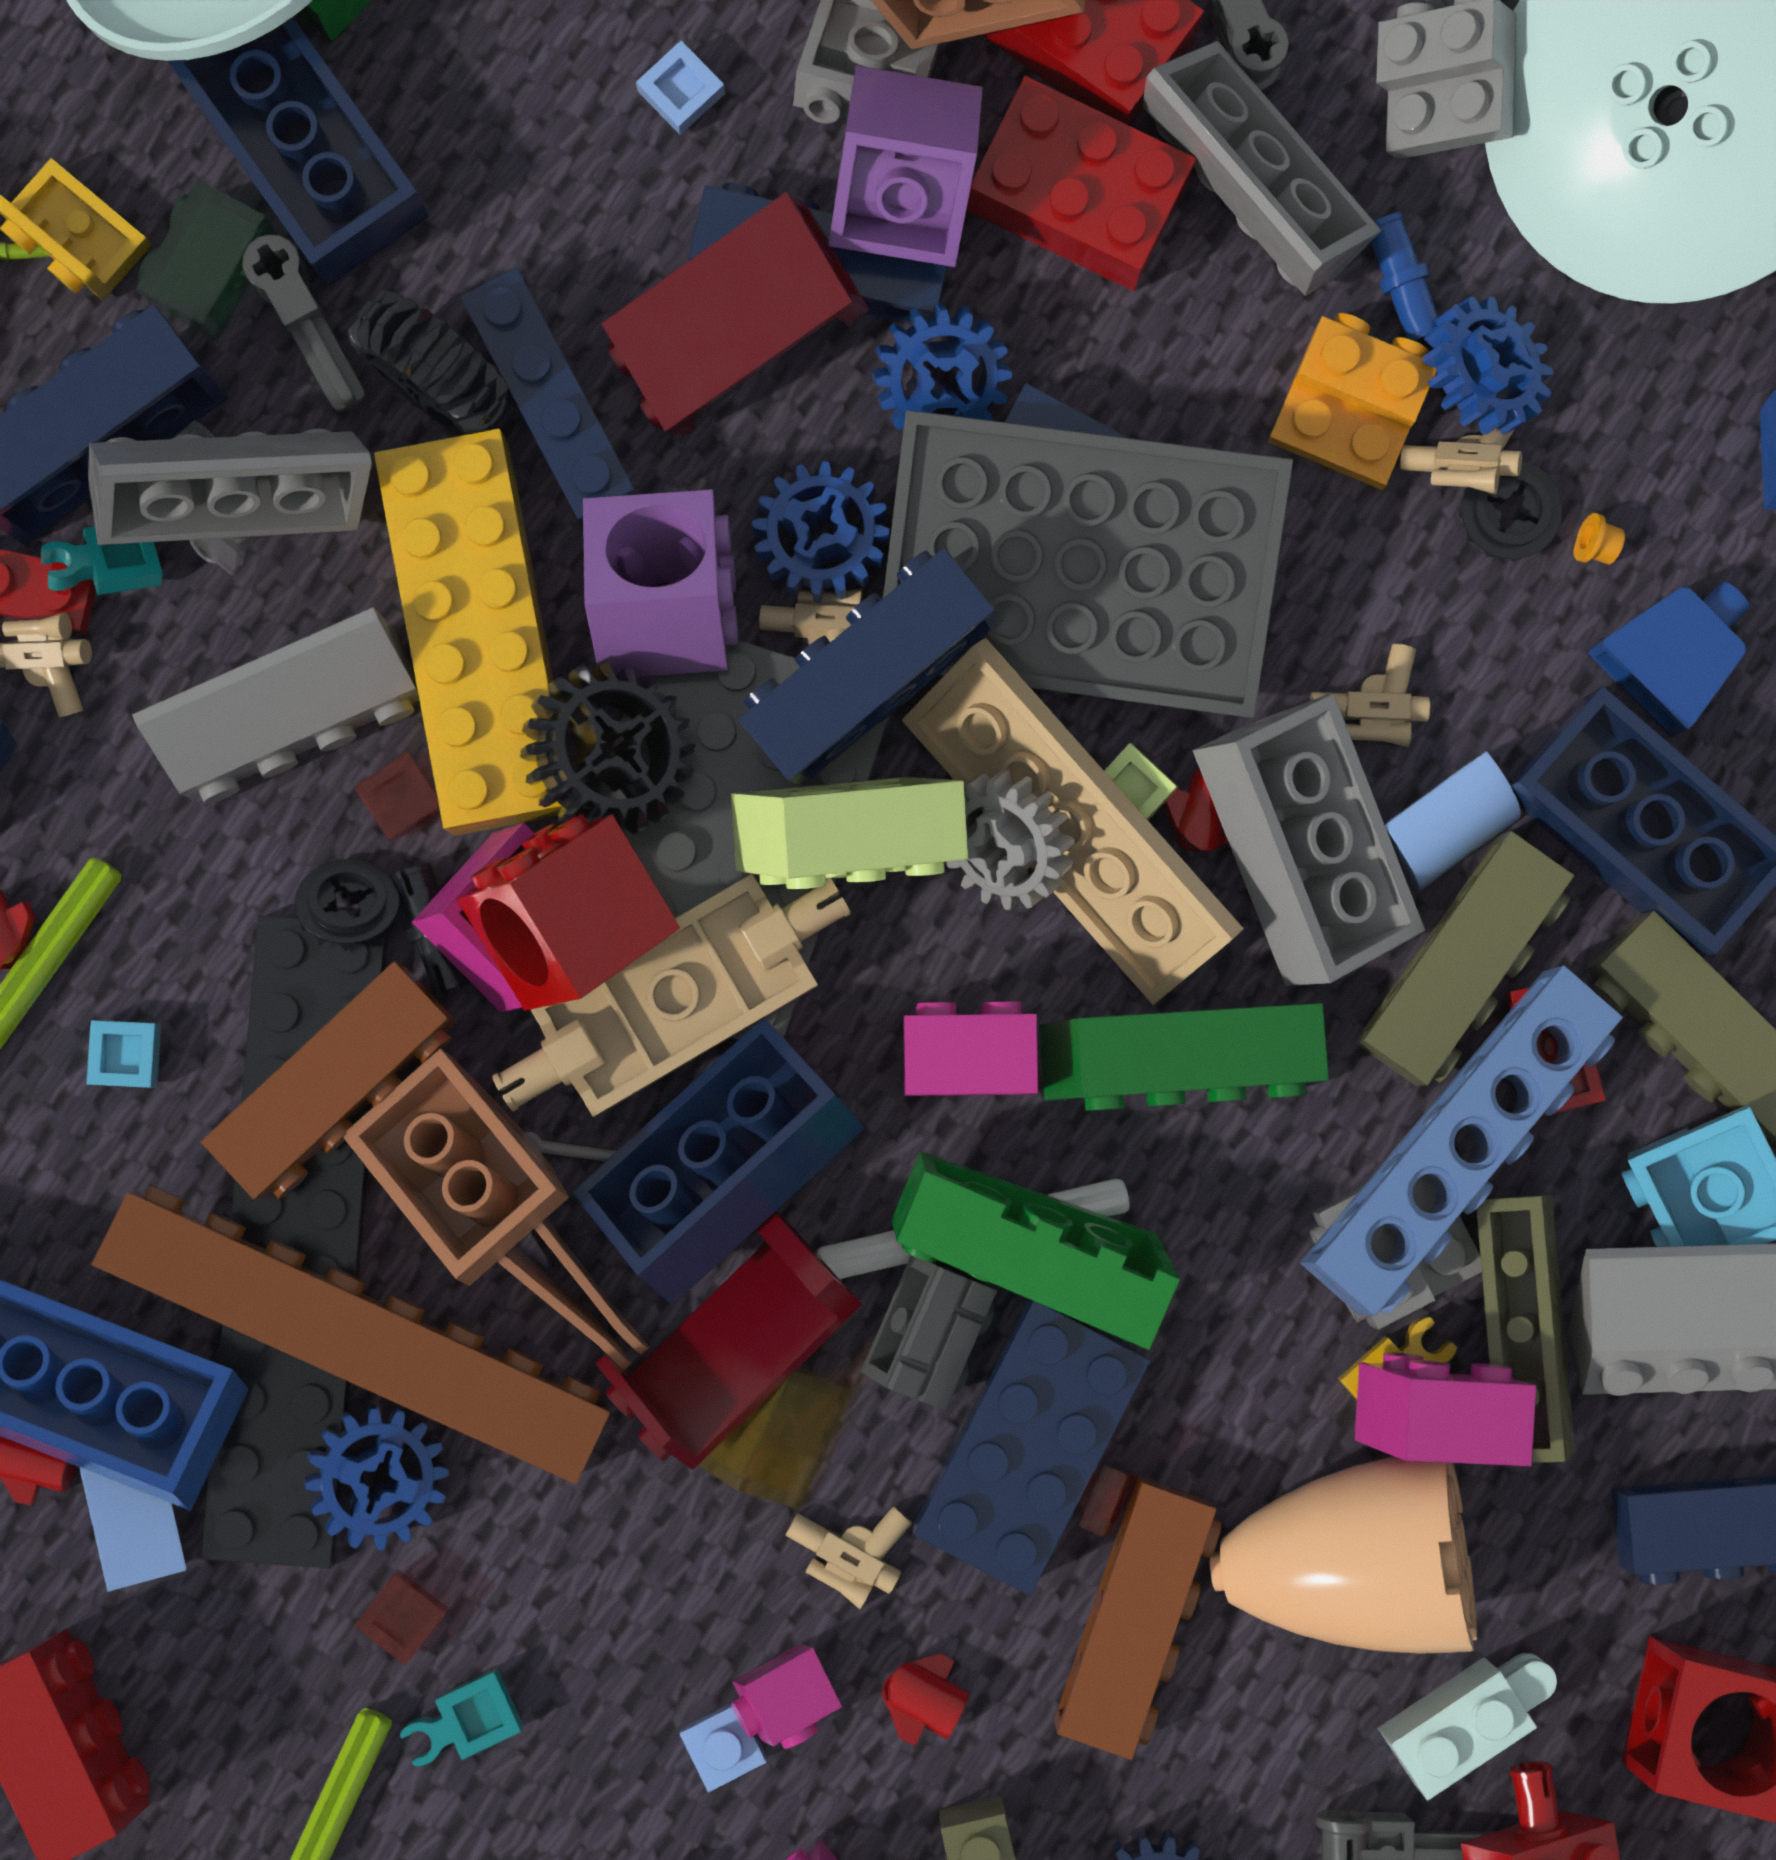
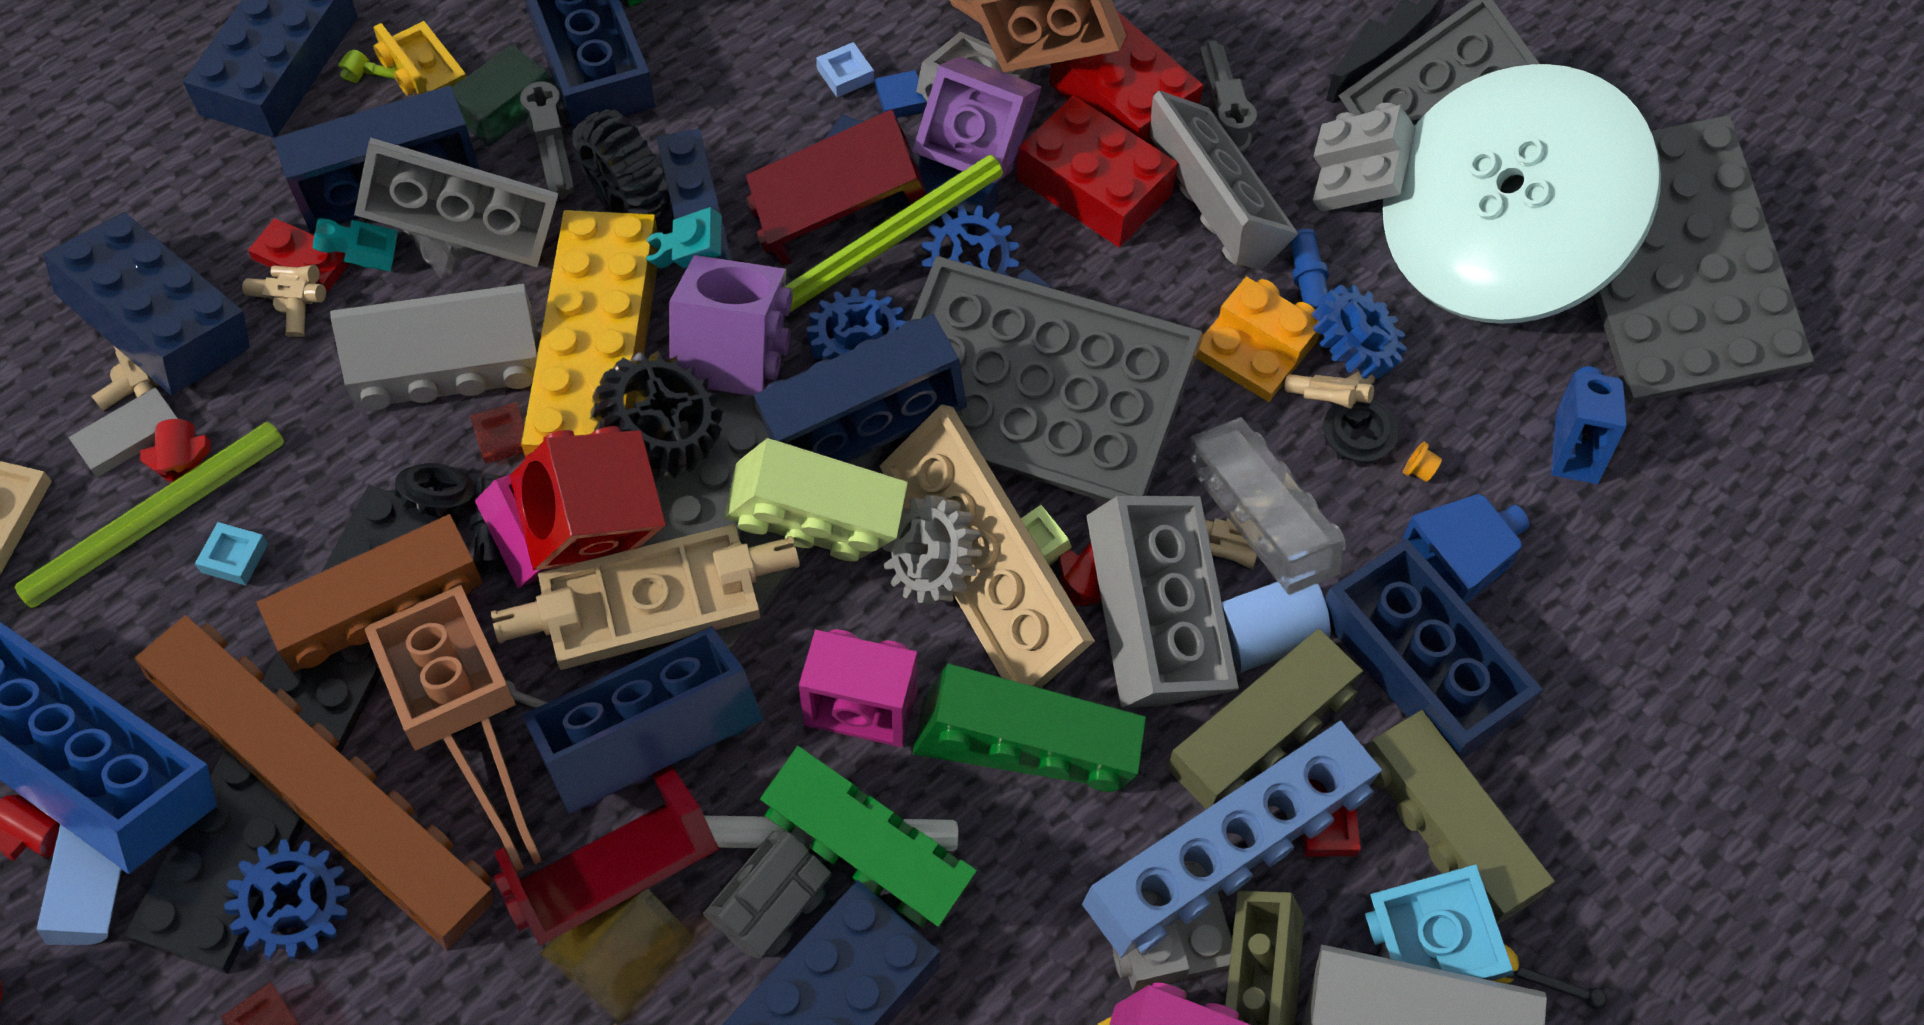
camera: 15 degrees right, 25 degrees down
(568, 471) = (691, 236): none -> teal plate
(767, 108) = (900, 94): none -> blue tile
(834, 372) = (894, 230): none -> lime axle
(1415, 670) = (1267, 505): none -> clear brick

